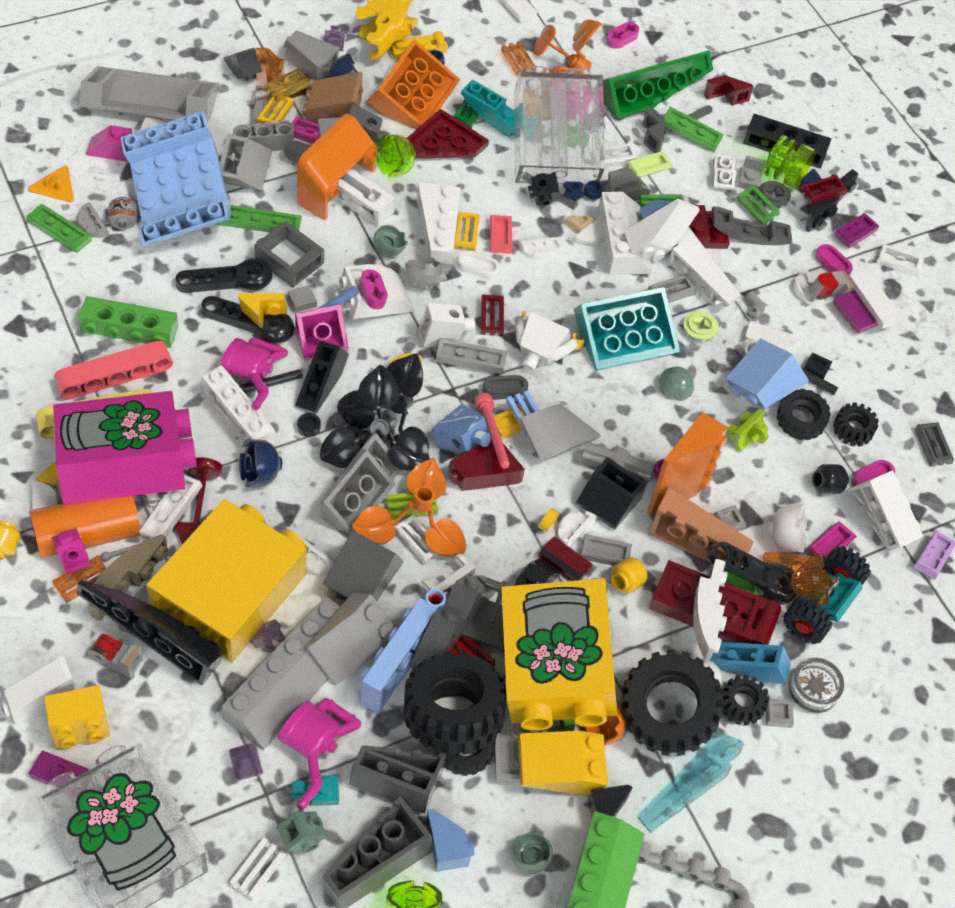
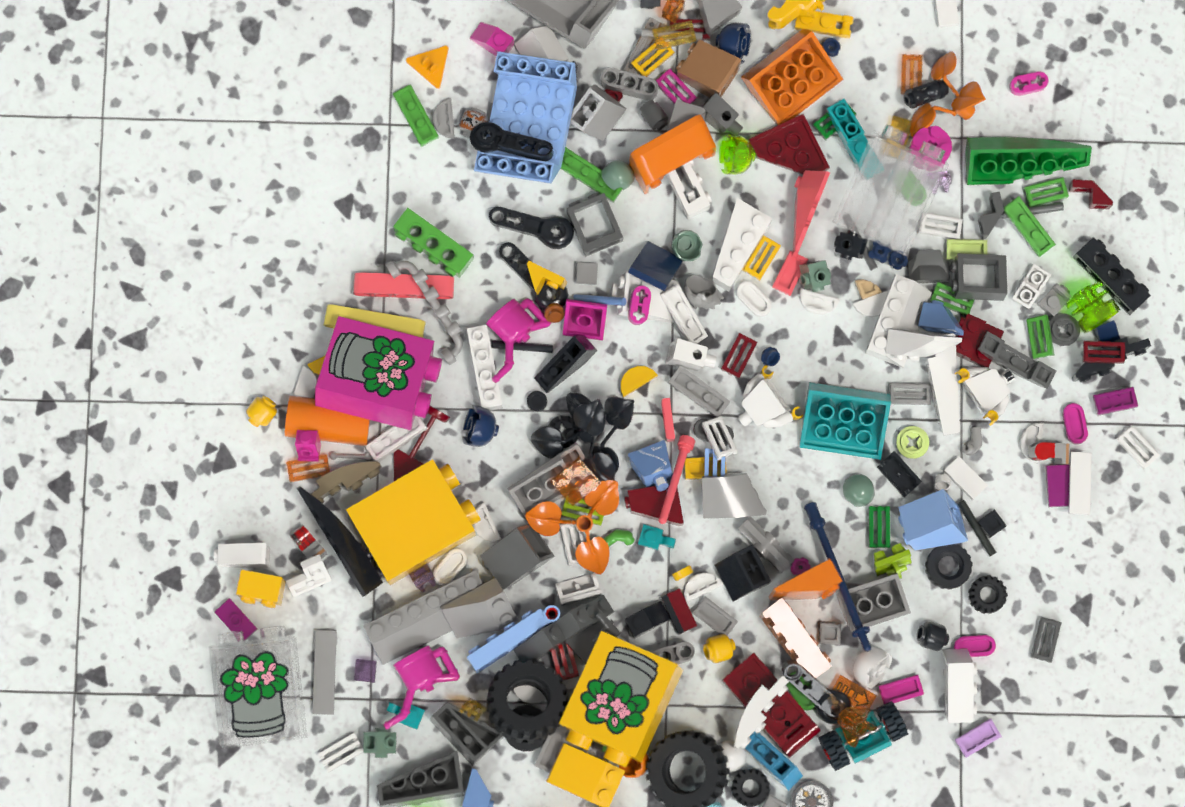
camera: 30 degrees right, 25 degrees up
(138, 683) = (313, 576): none -> white plate
(148, 209) = (508, 142): none -> black beam
(148, 360) = (441, 310): none -> light grey bar
(197, 786) = (324, 672): none -> light grey tile
(287, 337) = (554, 313): none -> dark orange plate
(291, 205) = (618, 175): none -> sand green hair
(293, 611) = (450, 567): none -> white tile
(370, 259) = (655, 266): none -> dark blue tile
(396, 744) = (472, 711): none -> clear yellow tile
(402, 467) = (578, 490): none -> clear orange piece
(414, 288) = (683, 314): none -> white tile
(453, 387) = (668, 420): none -> coral tile
(464, 511) = (620, 535): none -> bright green arm
(484, 169) = (807, 197): none -> coral wedge
(499, 502) = (652, 538): none -> teal plate
(518, 383) = (725, 452): none -> white tile
(523, 302) = (770, 356): none -> dark blue plate
(526, 222) = (815, 275): none -> sand green brick
(546, 58) = (934, 90): none -> black piece
(656, 423) = (817, 523): none -> dark blue bar
(691, 105) = (1029, 196): none -> bright green tile
(694, 181) = (976, 293): none -> dark grey window
(706, 353) = (899, 474): none -> black hinge
(718, 404) = (879, 509): none -> green tile
(740, 258) = (987, 390): none -> white torso
(755, 467) = (876, 601): none -> light grey slope

